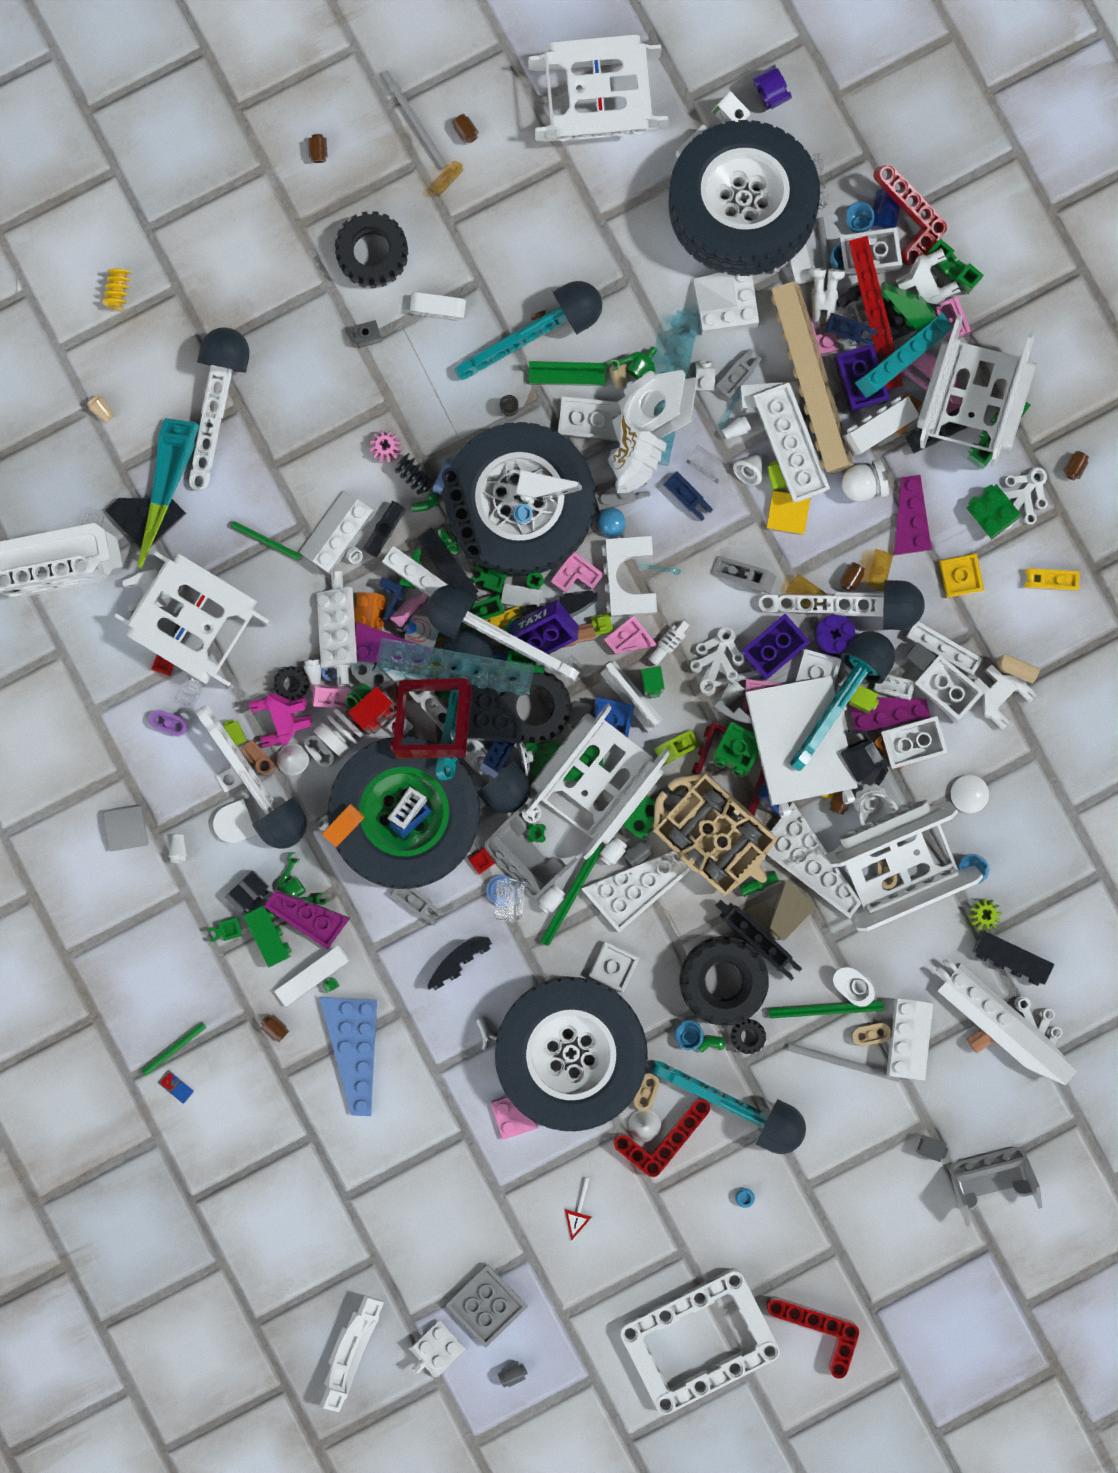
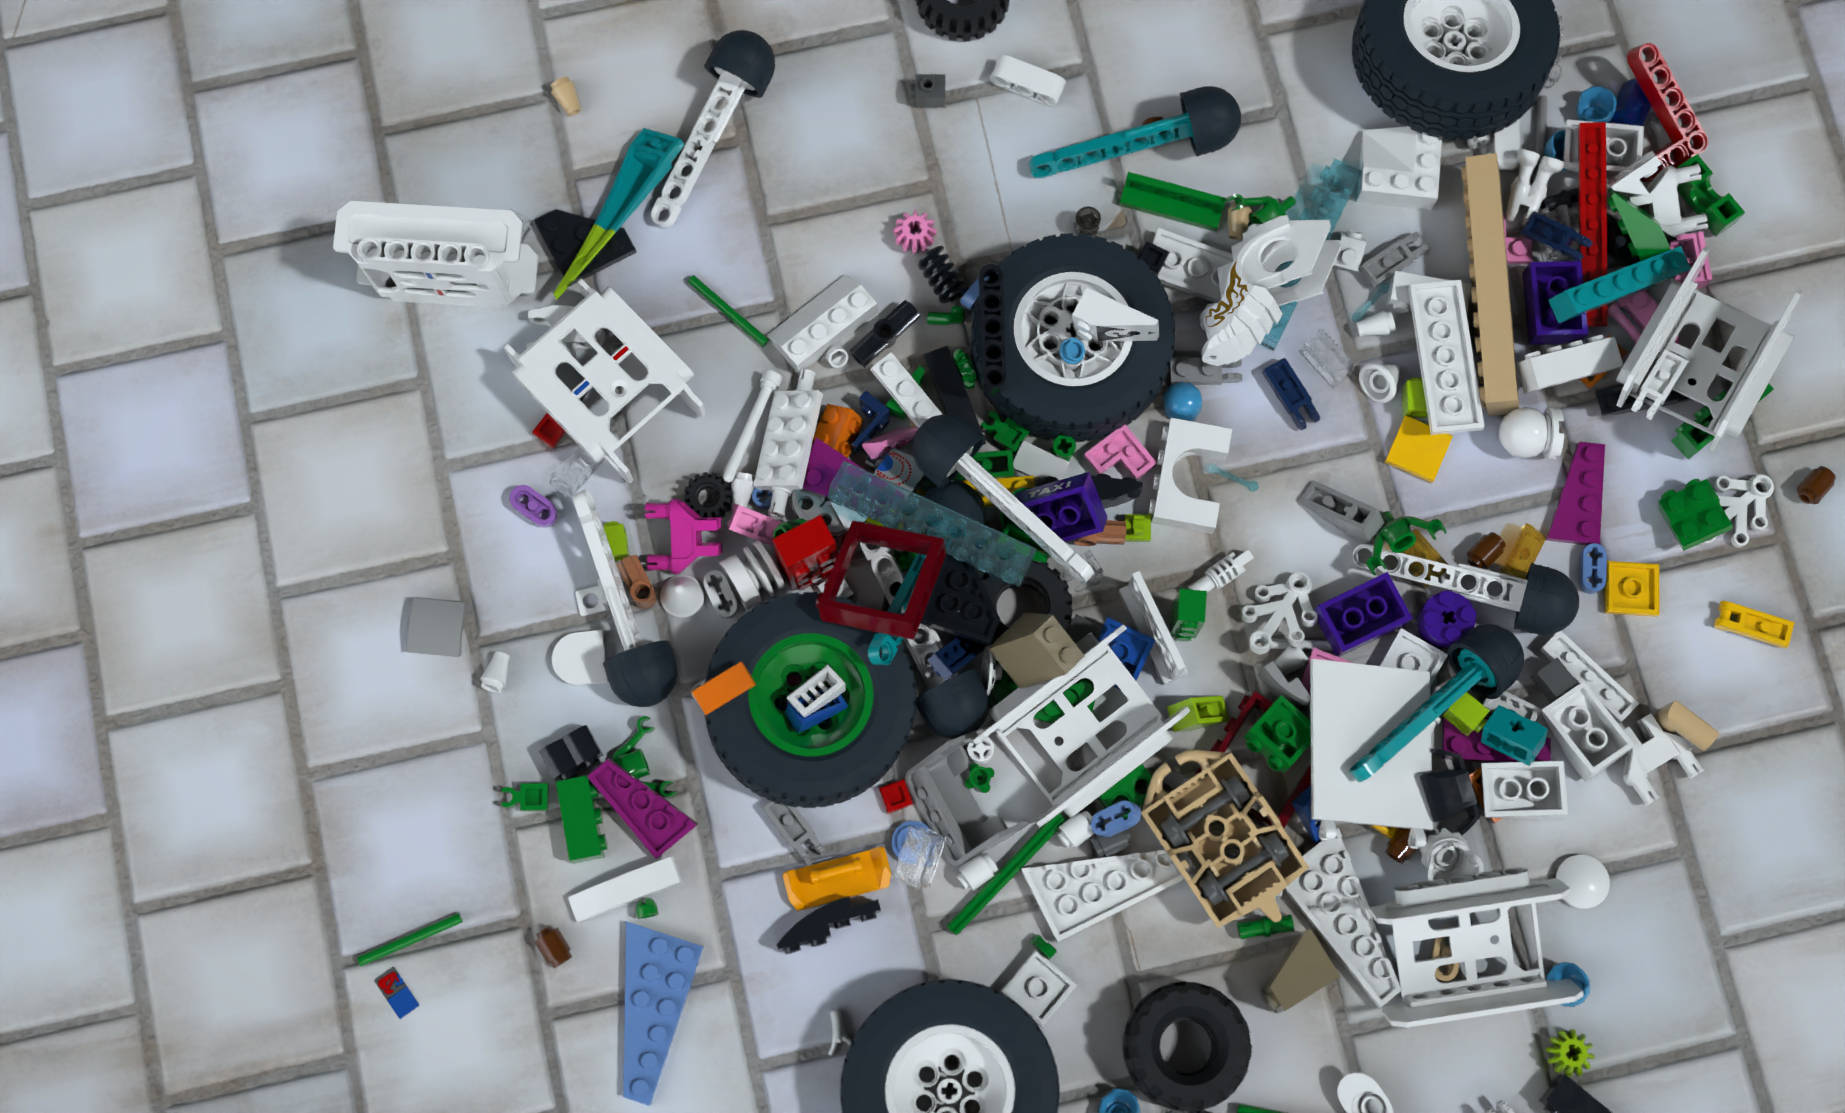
camera: 15 degrees right, 10 degrees down
(311, 587) = (769, 382): none -> white piece
(456, 929) = (838, 879): none -> light orange piece
(551, 739) = (1035, 650): none -> dark tan slope
(563, 422) = (1154, 257): none -> black tile
(609, 937) = (1044, 947): none -> green tile
(629, 637) = (1170, 553): bright pink wing -> none
(635, 836) = (1117, 822): none -> medium blue beam
(757, 937) = (1240, 988): black hinge -> none
(788, 584) = (1399, 536): none -> green piece
(895, 271) = (1628, 179): none -> white slope
(899, 706) = (1514, 735): none -> teal brick
(926, 569) = (1586, 568): none -> medium blue beam
(948, 421) = (1660, 381): none -> white hinge

